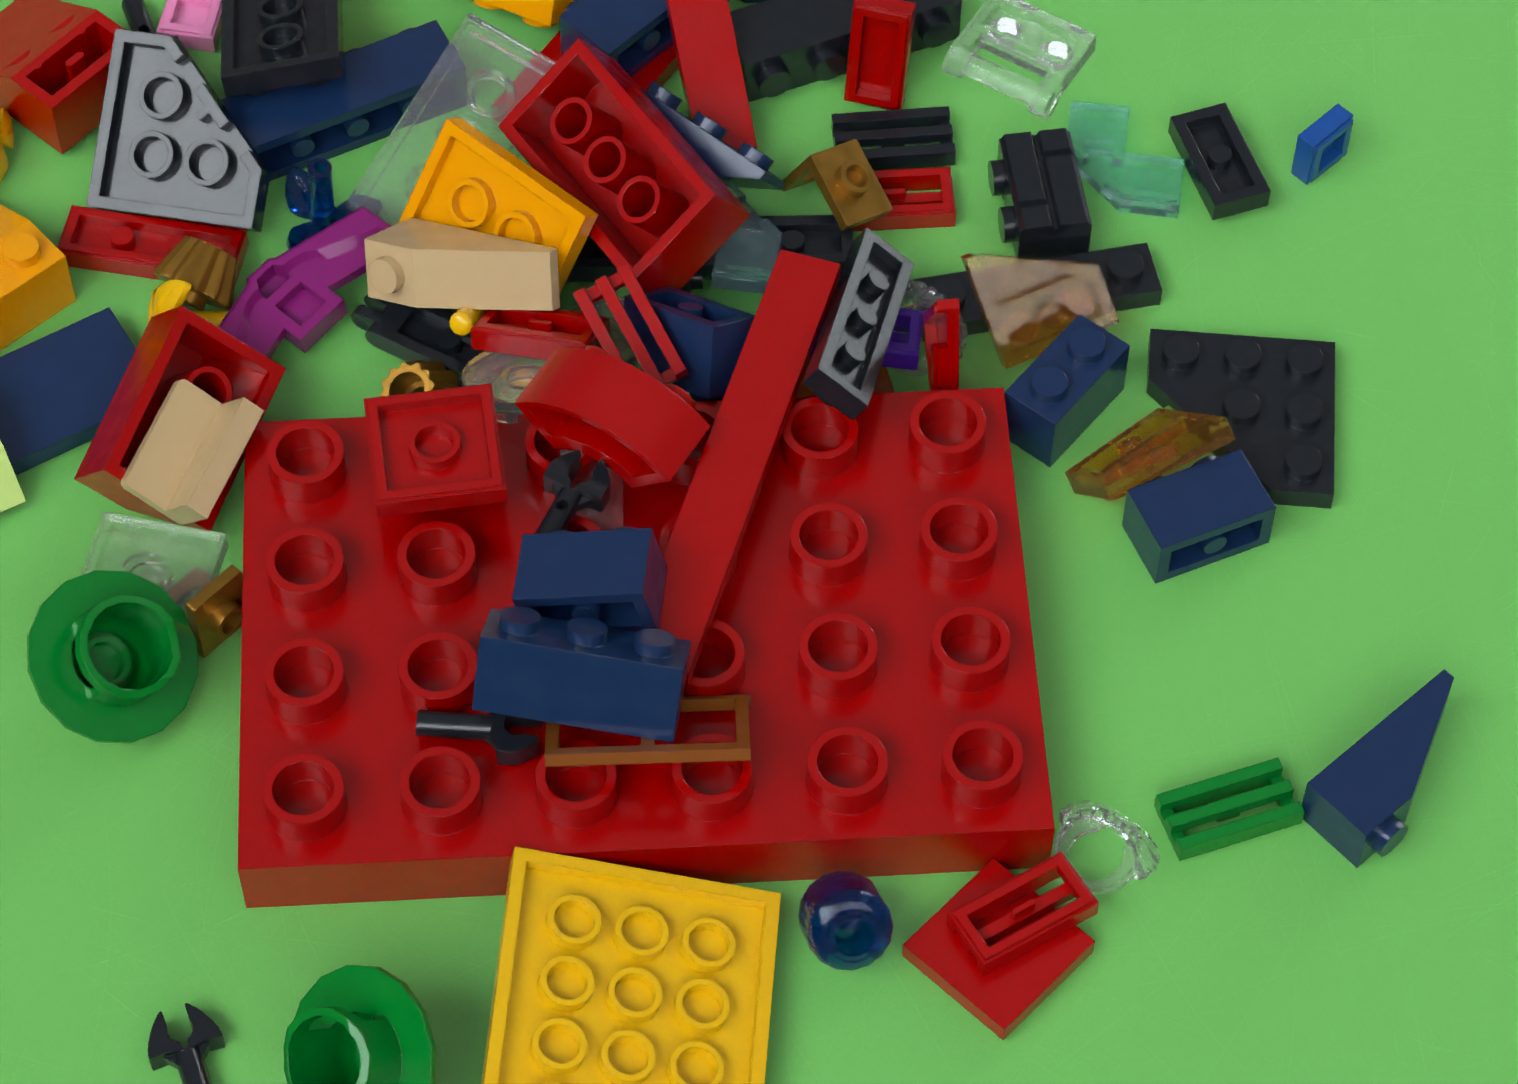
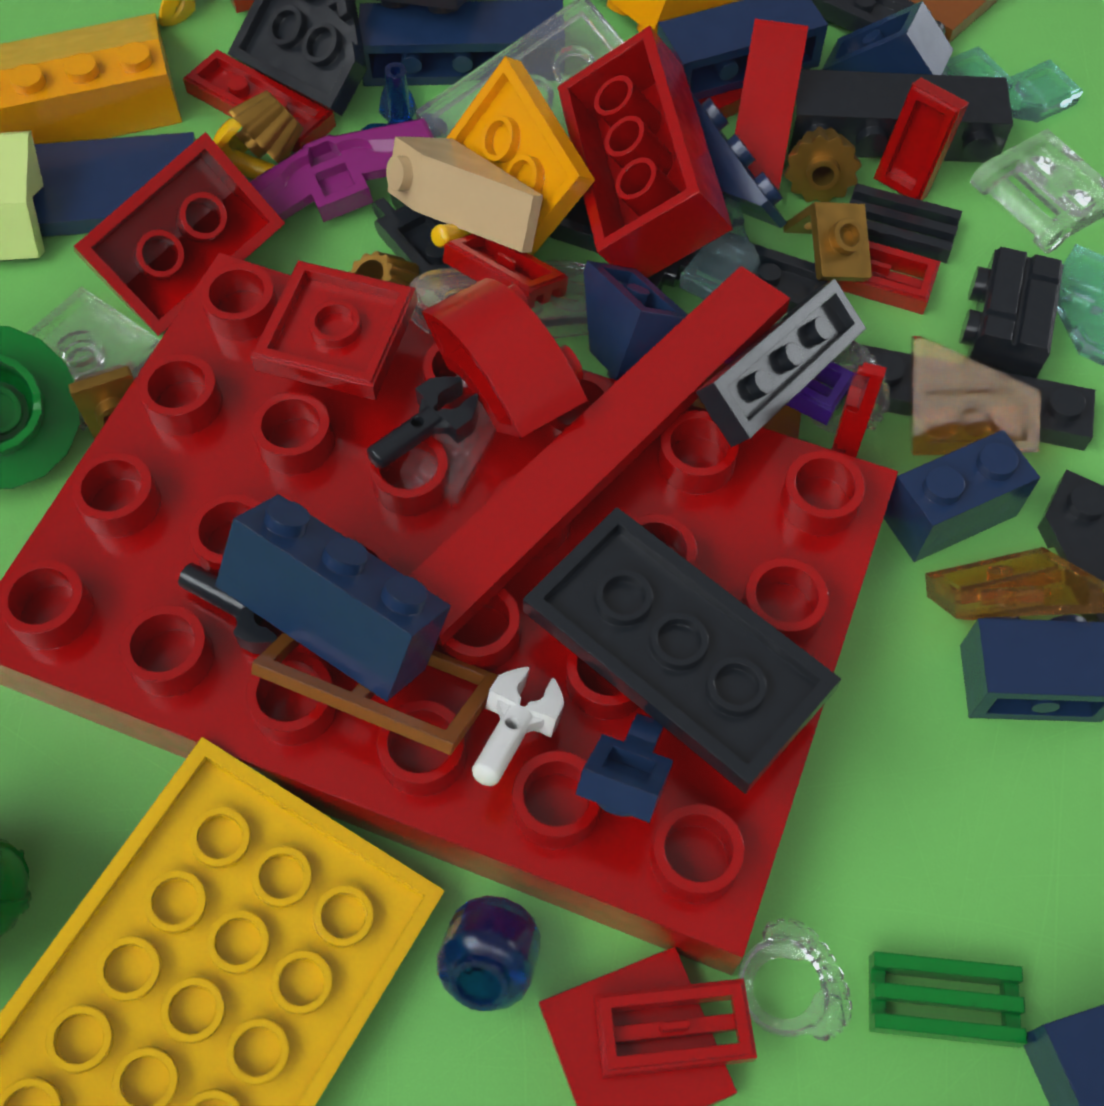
camera: 25 degrees right, 5 degrees up
(190, 452) = (154, 255): tan panel -> none
(593, 575) = (394, 505): dark blue brick -> none
(606, 289) = (566, 247): red tile -> none
(786, 717) = (515, 722): none -> white bar
(790, 107) = (822, 165): none -> pearl gold piece
(891, 602) = (681, 648): none -> black plate
(900, 715) = (628, 774): none -> dark blue plate

